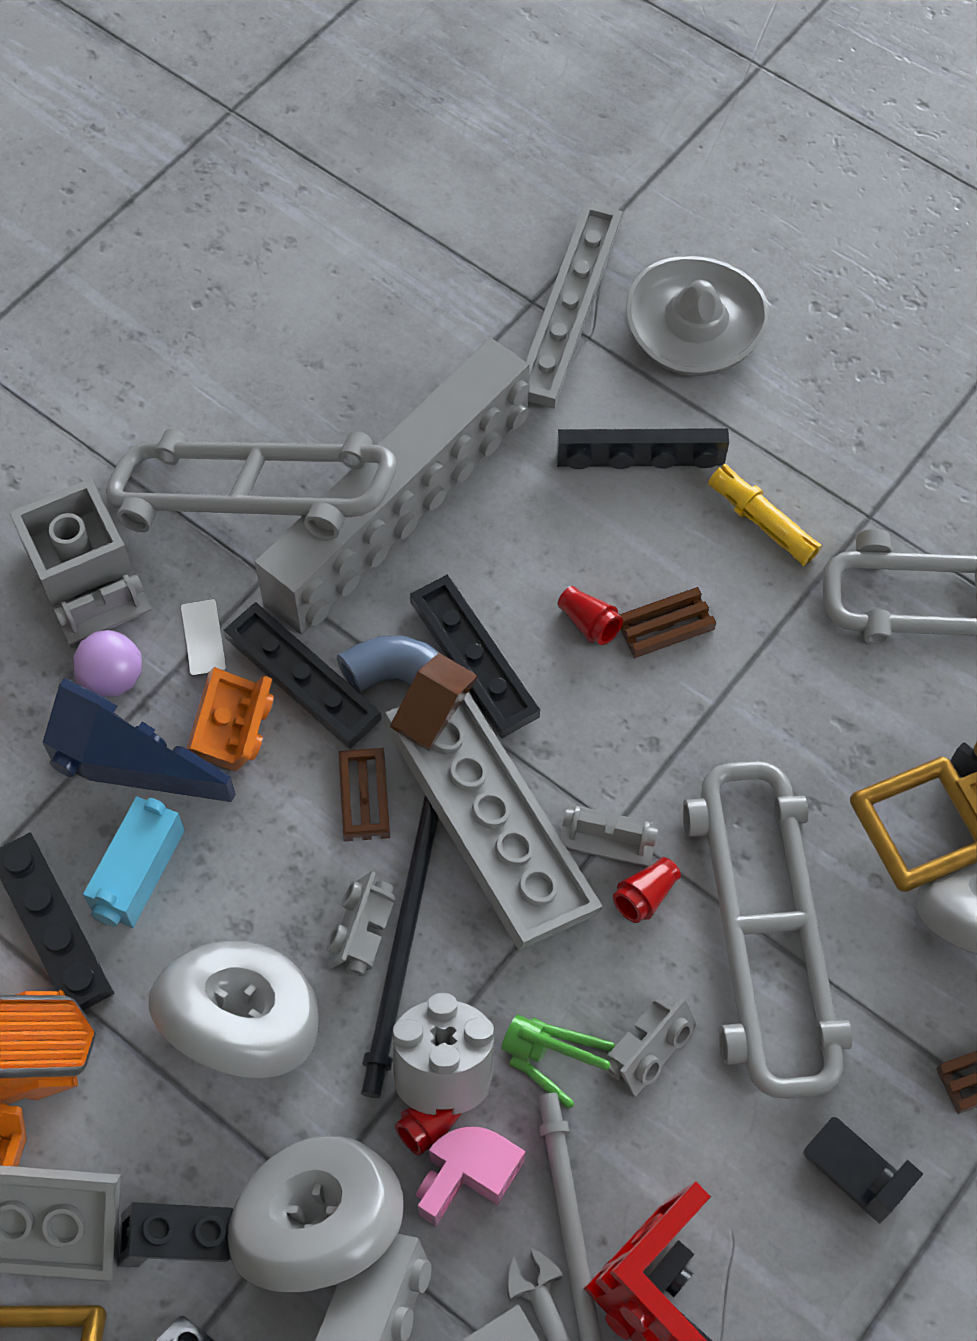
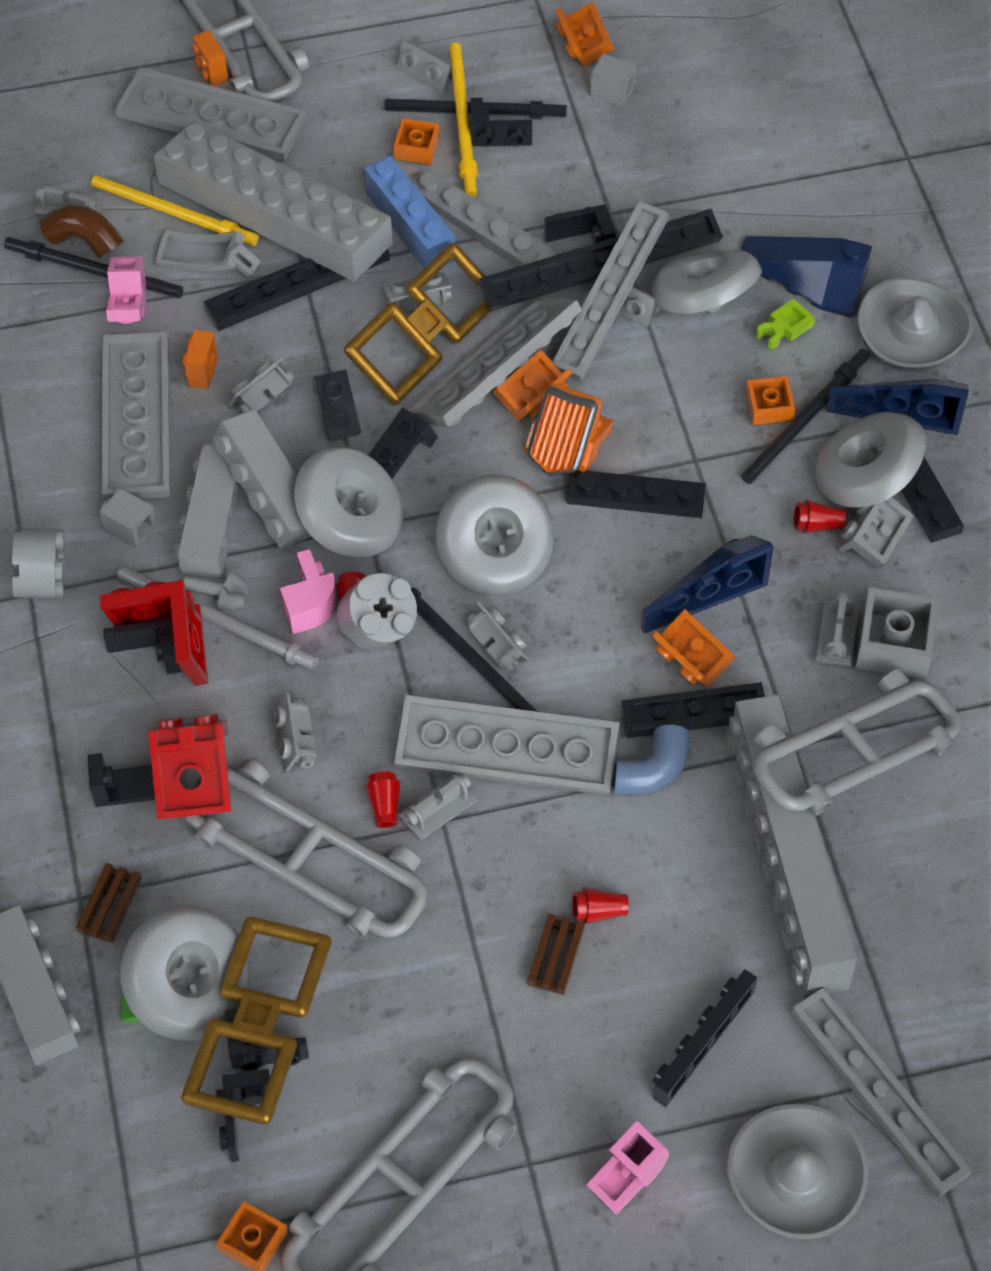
camera: 130 degrees right, 5 degrees down
(107, 663) = (792, 612): lavender hair -> none
(133, 862) = (636, 547): medium azure brick -> none
(203, 636) = (773, 681): white sticker -> none
(366, 829) = (579, 700): reddish brown tile -> none
(432, 700) = (603, 751): reddish brown slope -> none
(470, 645) = (627, 816): black plate -> none
(531, 1039) = (349, 672): bright green plant -> none
(752, 504) = (585, 1080): yellow pin -> none
(785, 1107) = (185, 746): none -> red bracket
(809, 421) = (634, 1165): none -> bright pink brick

